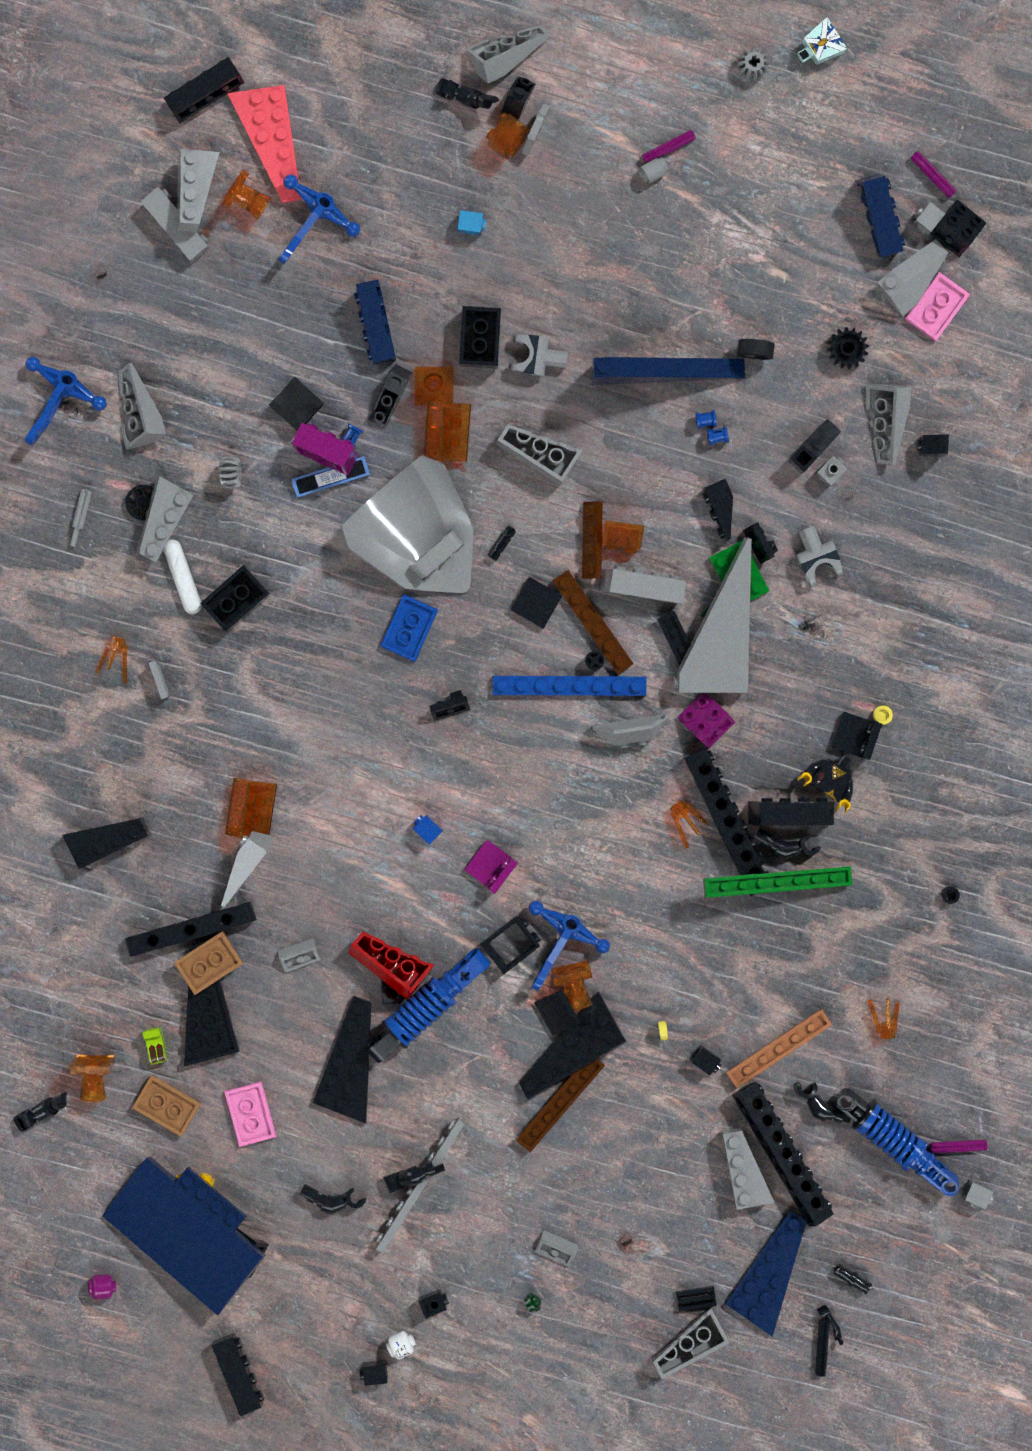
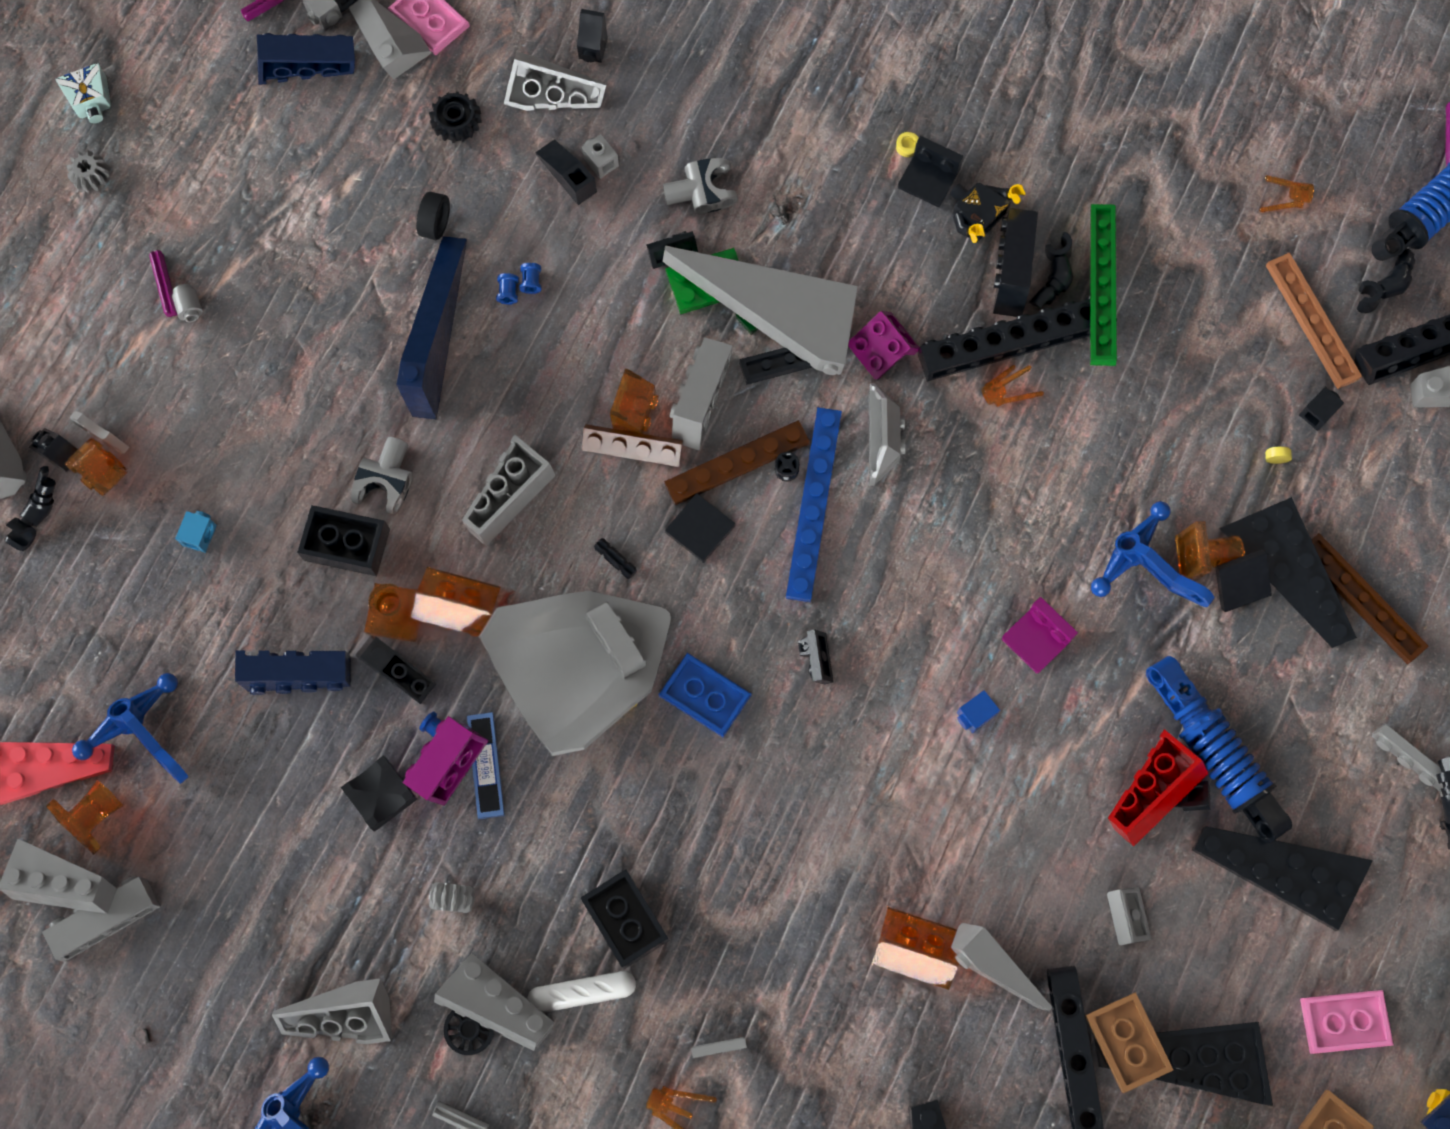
camera: 75 degrees left, 15 degrees down
(522, 923) = (1174, 635): black window -> none
(721, 503) = (614, 286): black slope -> none
(944, 895) = (1139, 93): black bush -> none

